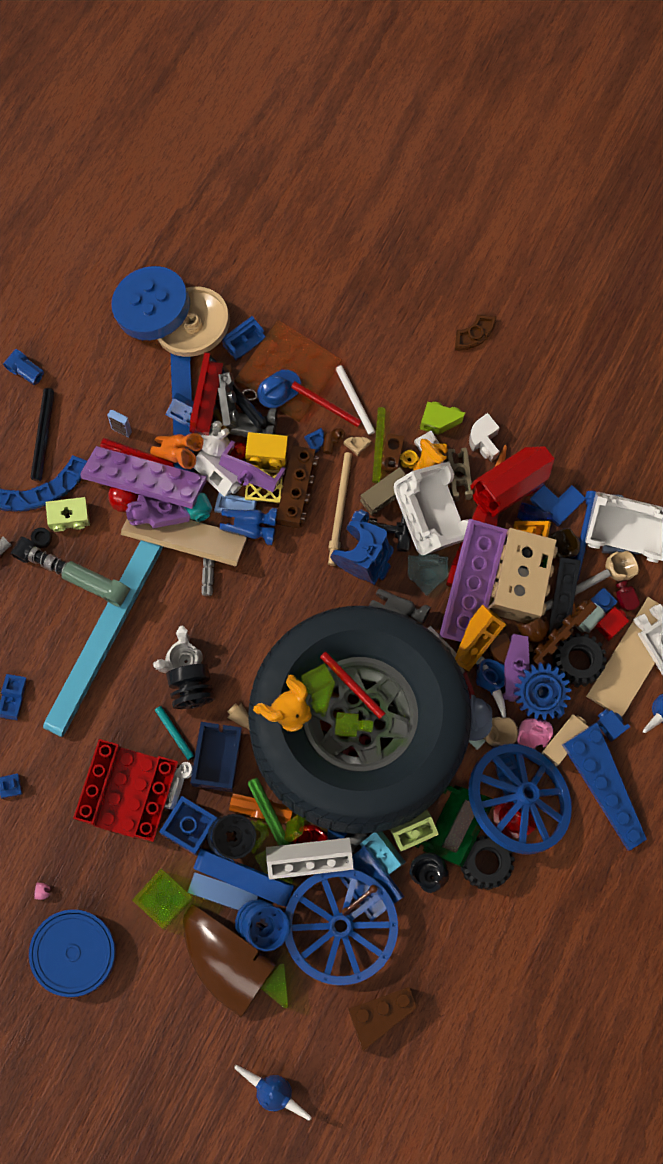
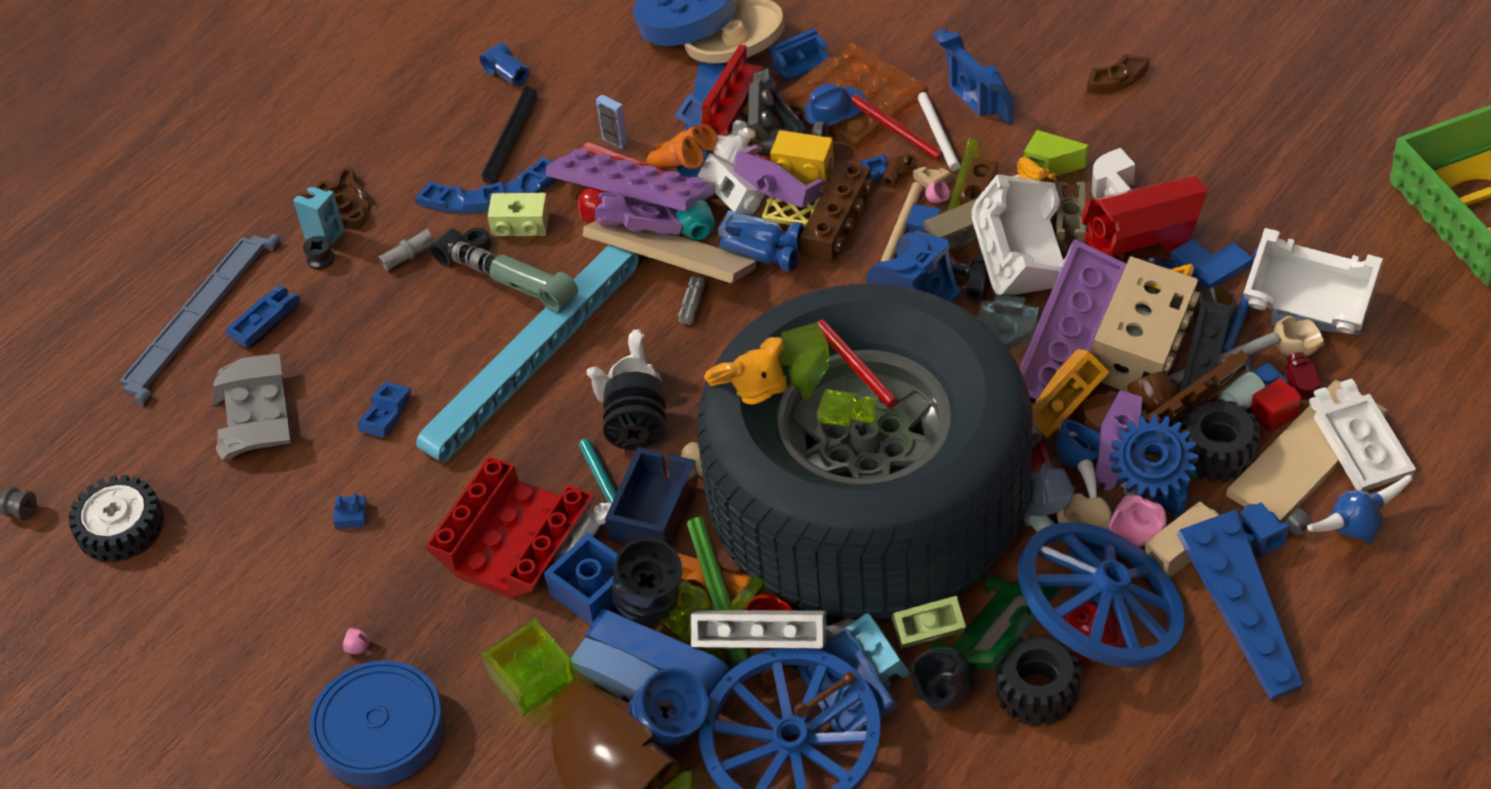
camera: 20 degrees right, 25 degrees down
(357, 484) = (919, 215): none -> blue tile
(366, 457) = (937, 192): none -> bright pink hinge
(374, 359) = (974, 84): none -> blue piece
(632, 715) = (1297, 521): none -> dark grey hinge

